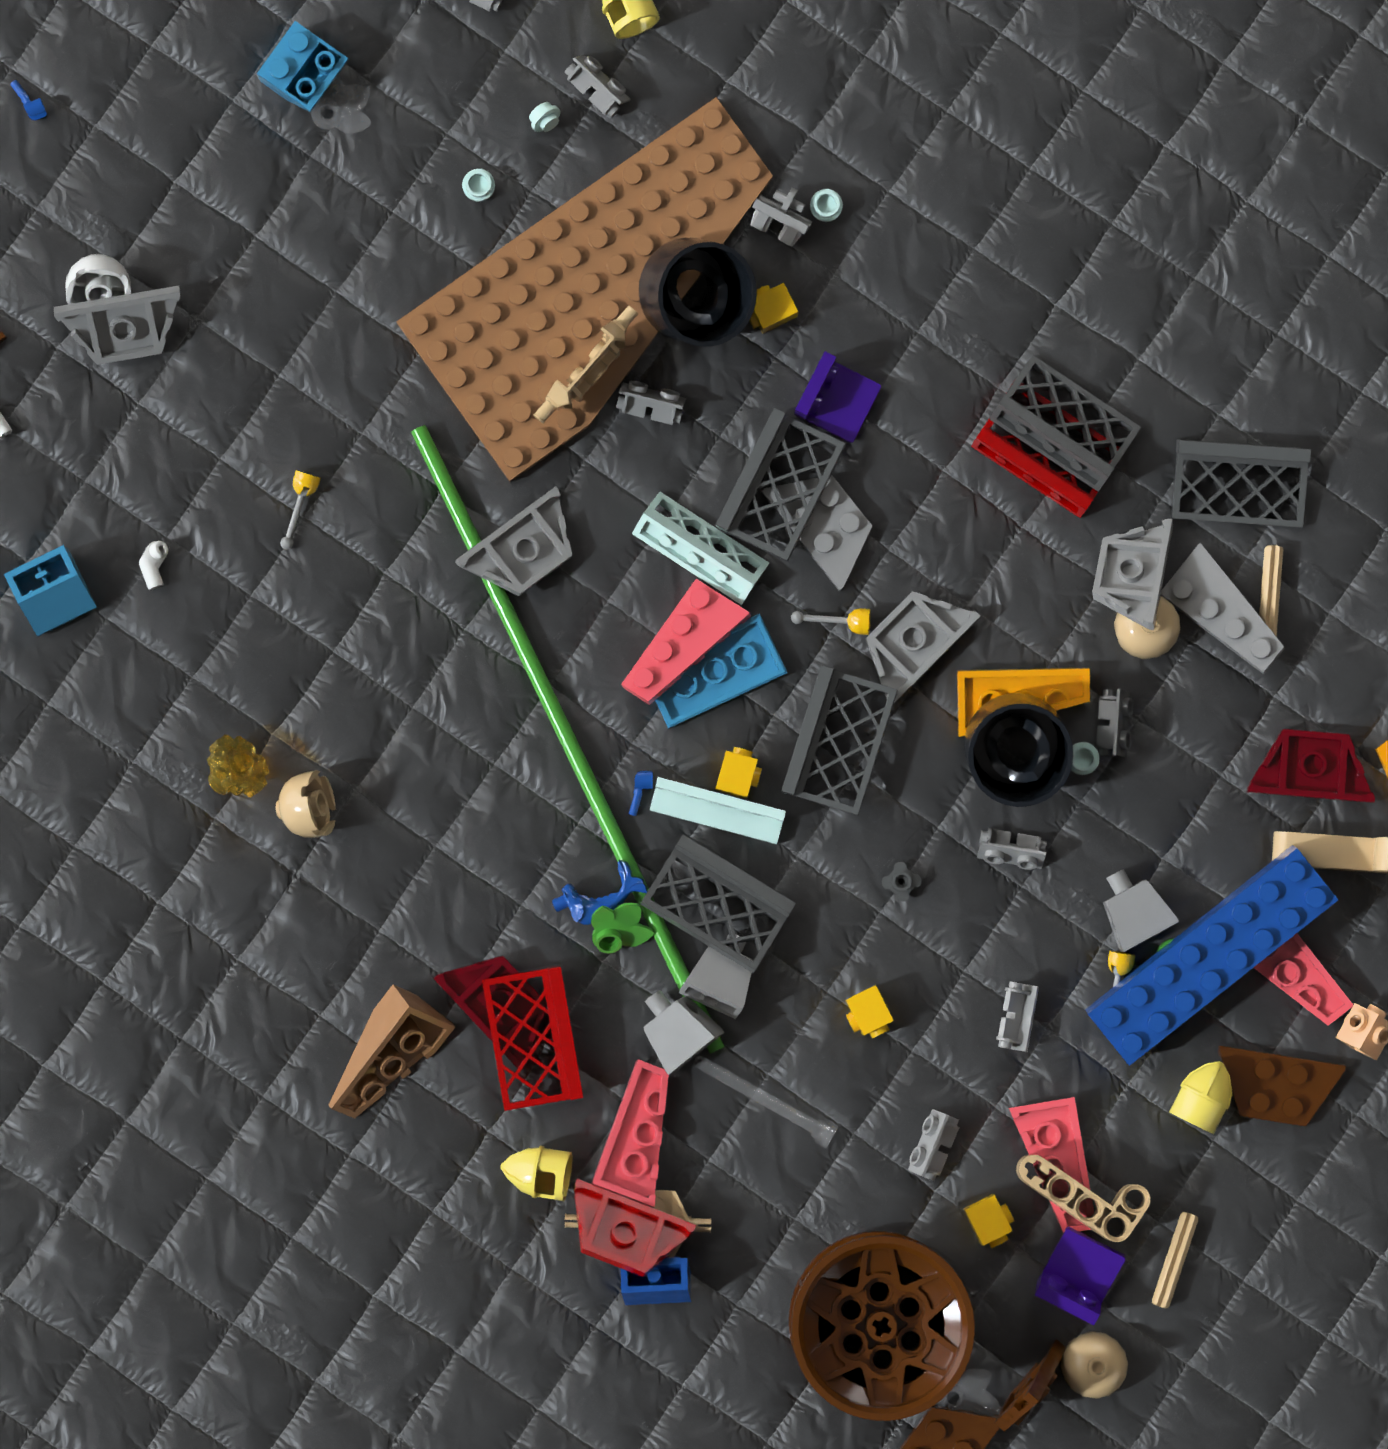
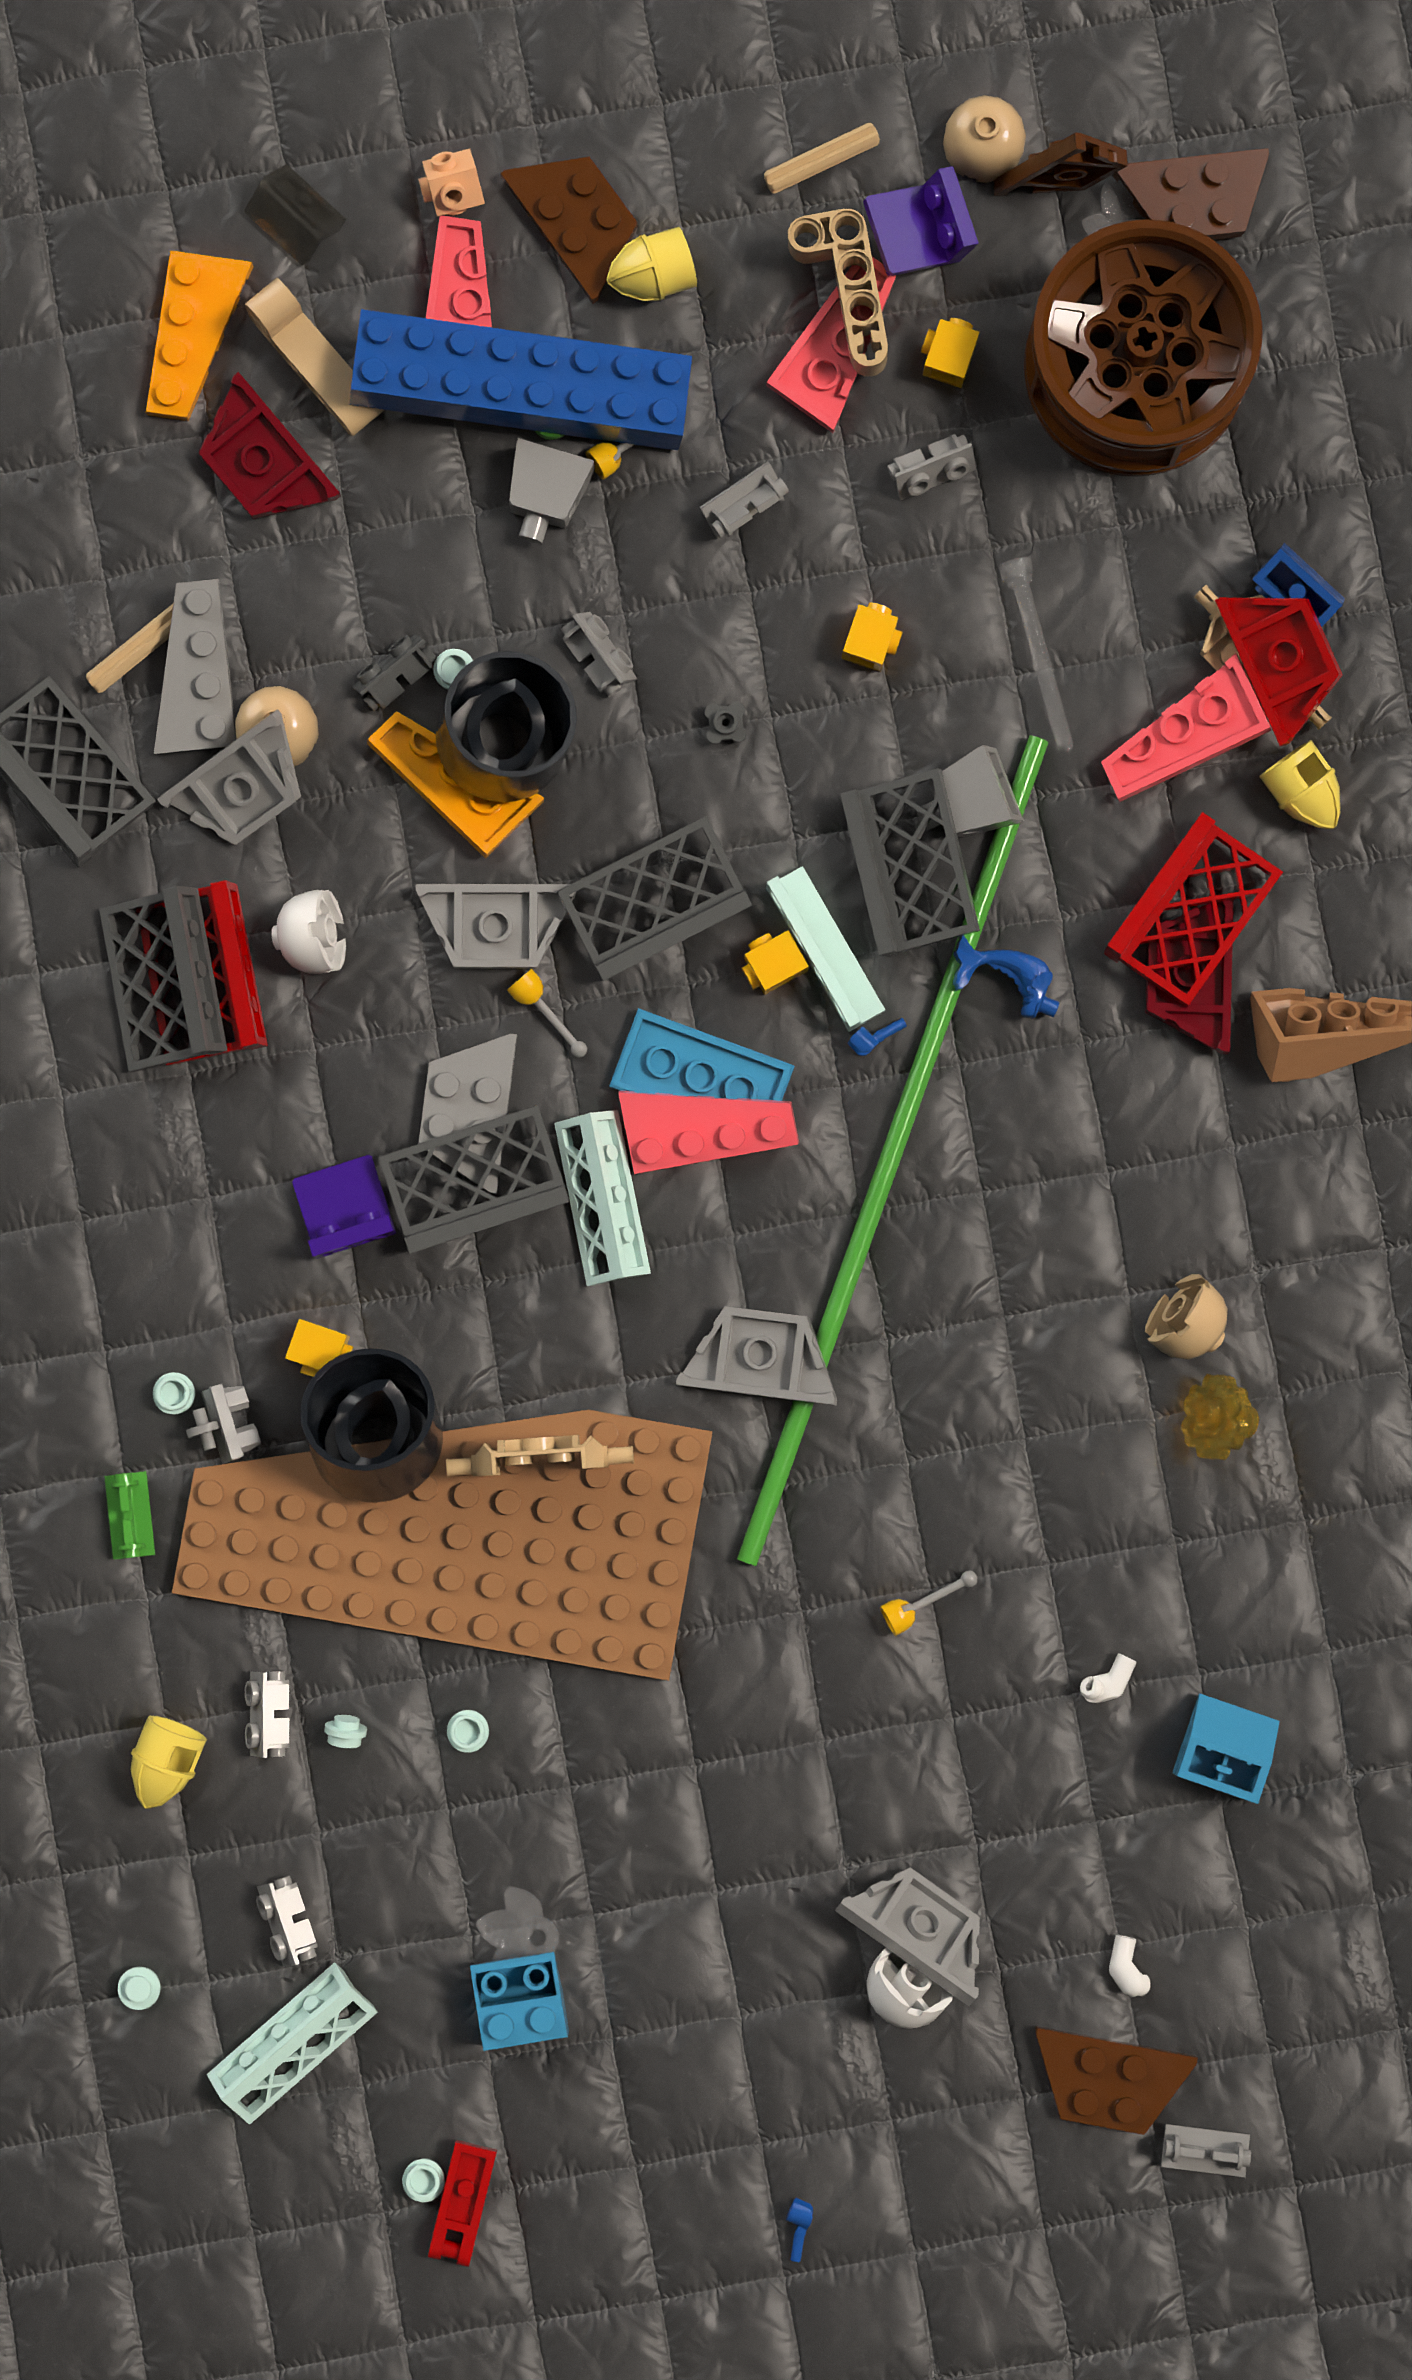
camera: 130 degrees left, 0 degrees up
(619, 928) = (1018, 931): bright green plate -> none
(663, 402) = (501, 1359): light grey hinge -> none
(679, 1030) = (1056, 786): light grey torso -> none
(782, 115) = (129, 1515): none -> bright green hinge
(1010, 528) = (309, 933): none -> white cylinder

